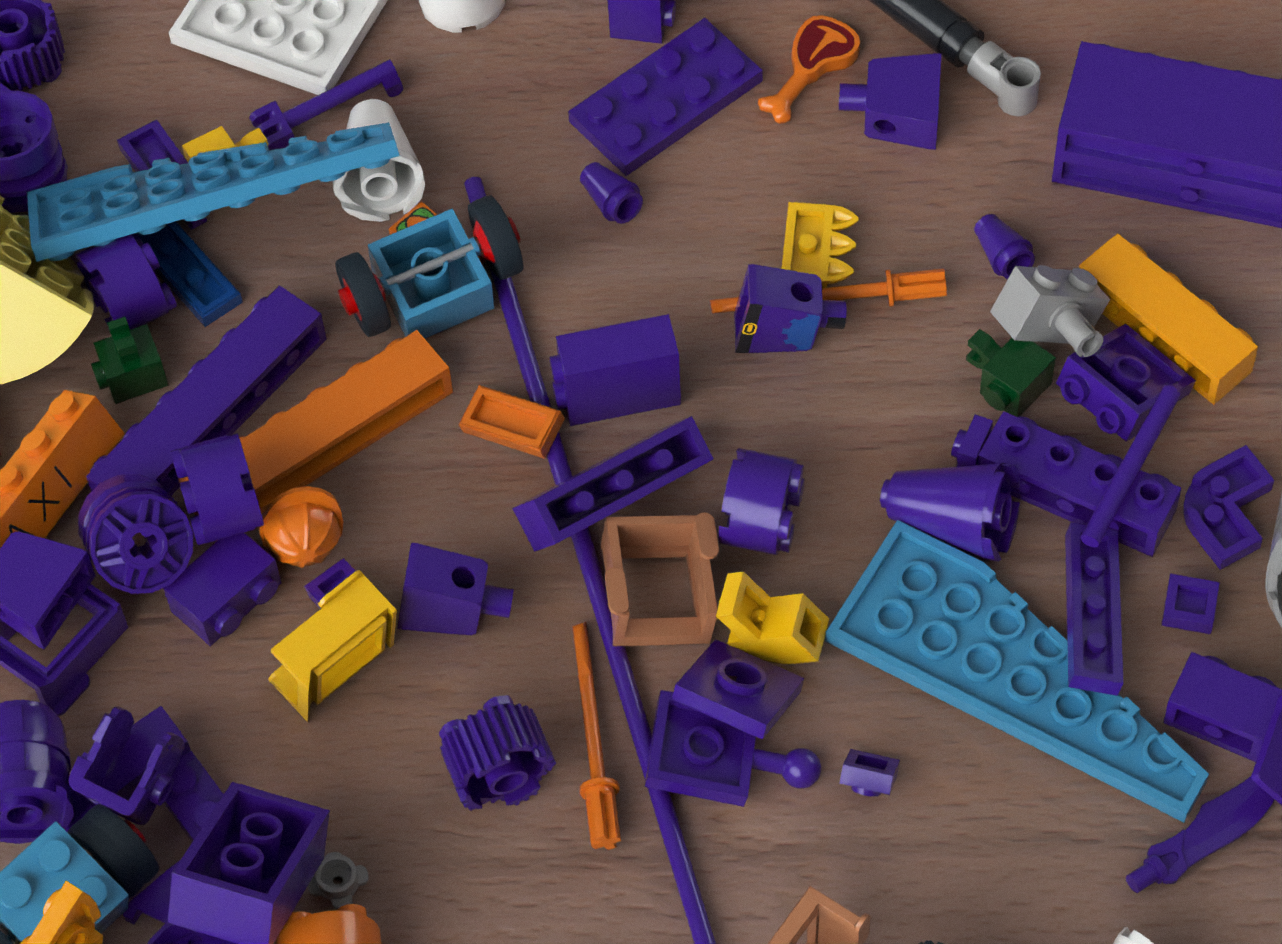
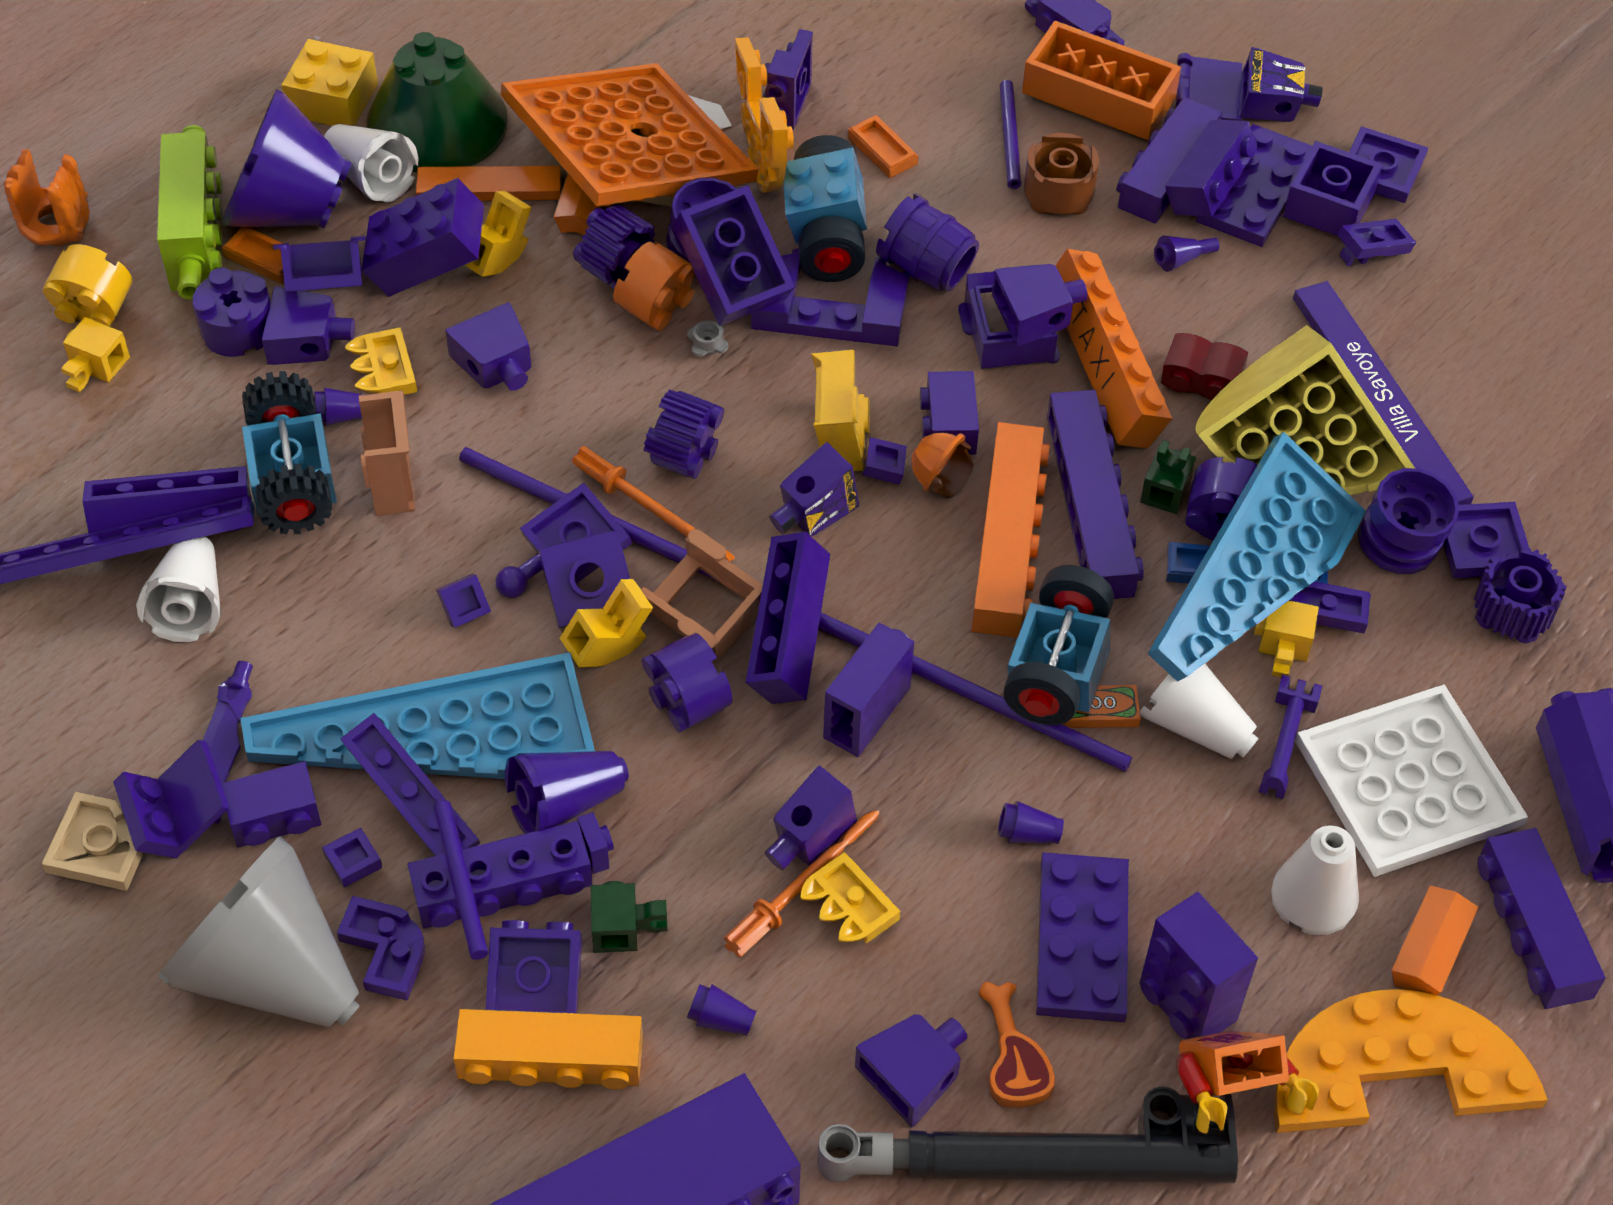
camera: 130 degrees right, 5 degrees down
(109, 741) = (880, 261): dark purple piece -> none
(118, 512) = (1021, 373): dark purple wheel -> none
(217, 488) = (996, 407): dark purple brick -> none
(511, 421) = (921, 624): orange tile -> none
(1052, 307) = (622, 959): light grey brick -> none

